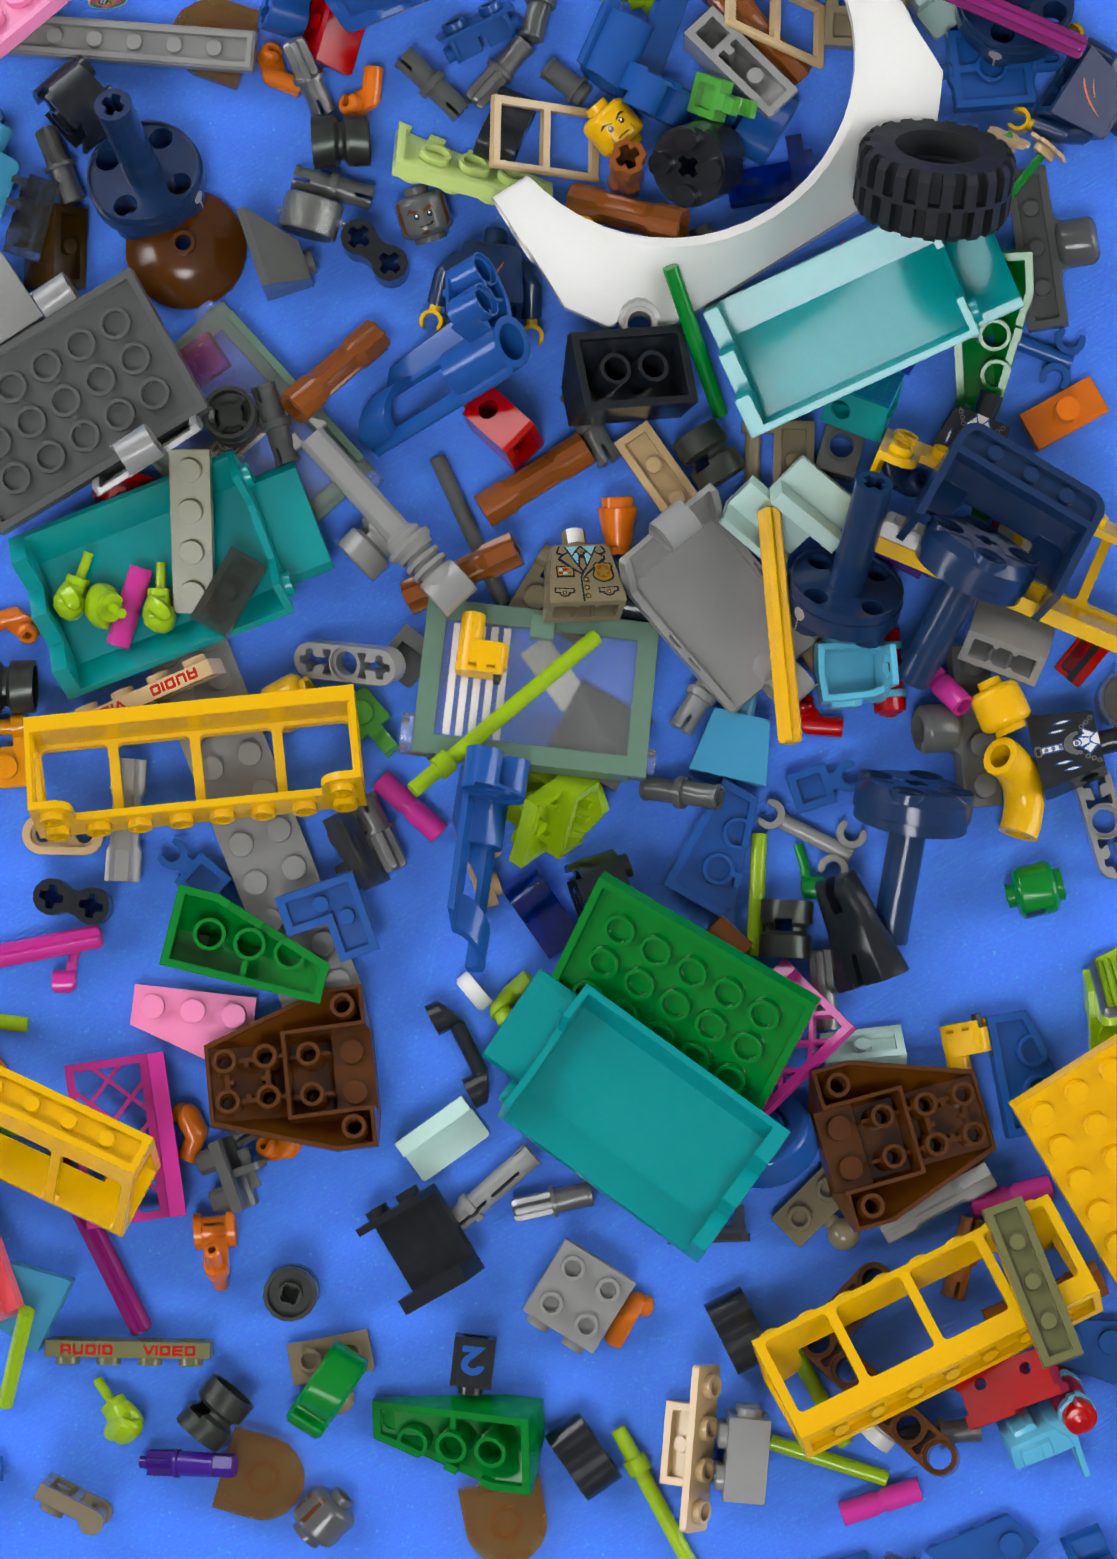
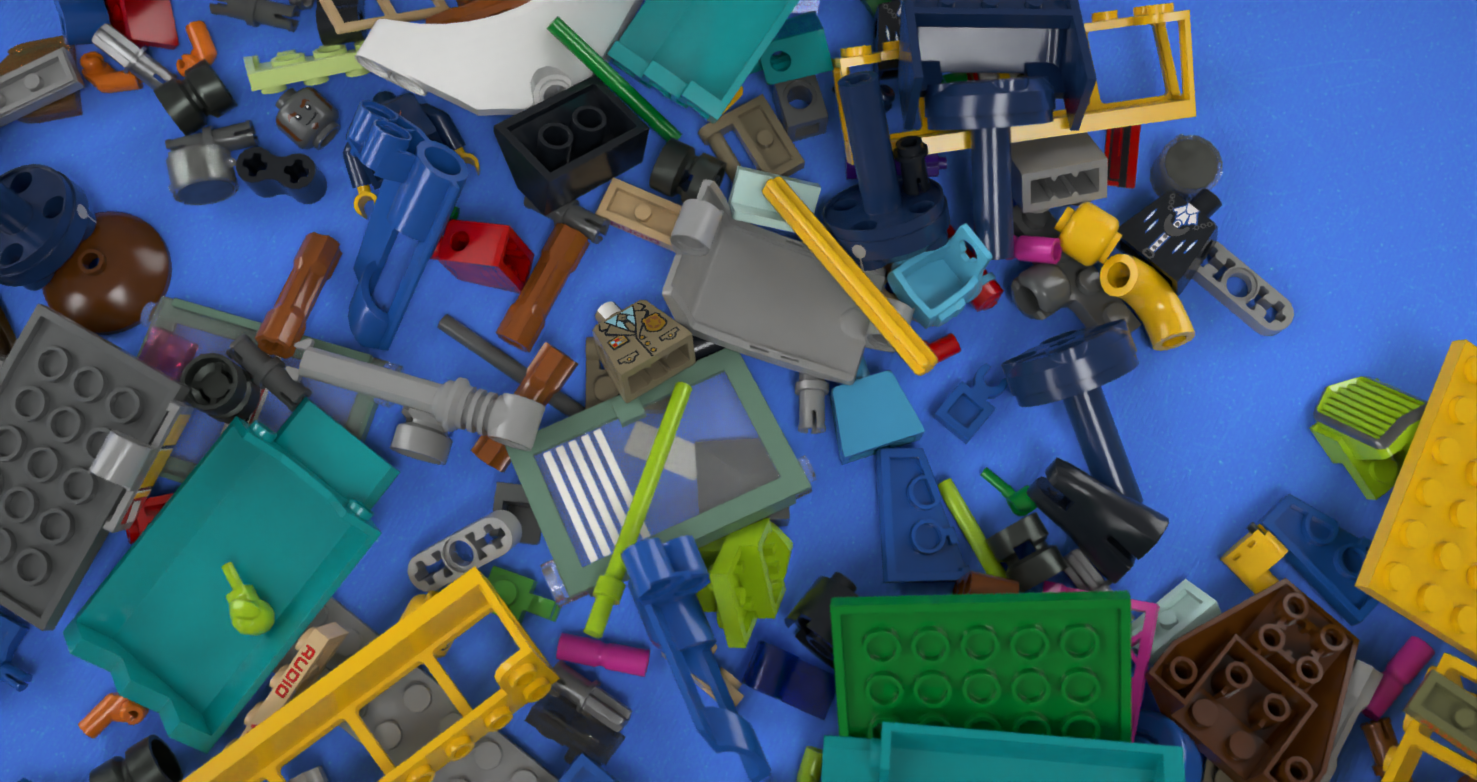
camera: 30 degrees left, 10 degrees down
(70, 596) = (155, 650): lime piece -> none
(103, 605) = (189, 640): lime piece -> none
(133, 596) = (220, 633): dark pink piece -> none
(191, 525) = (237, 514): plate -> none
(229, 592) = (305, 552): clear smoke plate -> none
(276, 257) = (188, 224): dark grey slope -> none
(477, 656) = (583, 468): yellow piece -> none
(617, 522) = (640, 278): orange cone -> none
(682, 792) = (851, 484): dark grey pin -> none
(812, 501) = (805, 156): light aqua panel -> none
(839, 850) = (1023, 451): light grey bar -> none
(890, 561) = (911, 156): none -> black pin
(892, 526) = (897, 129): white tile -> none
(1035, 889) = (1224, 379): green head -> none

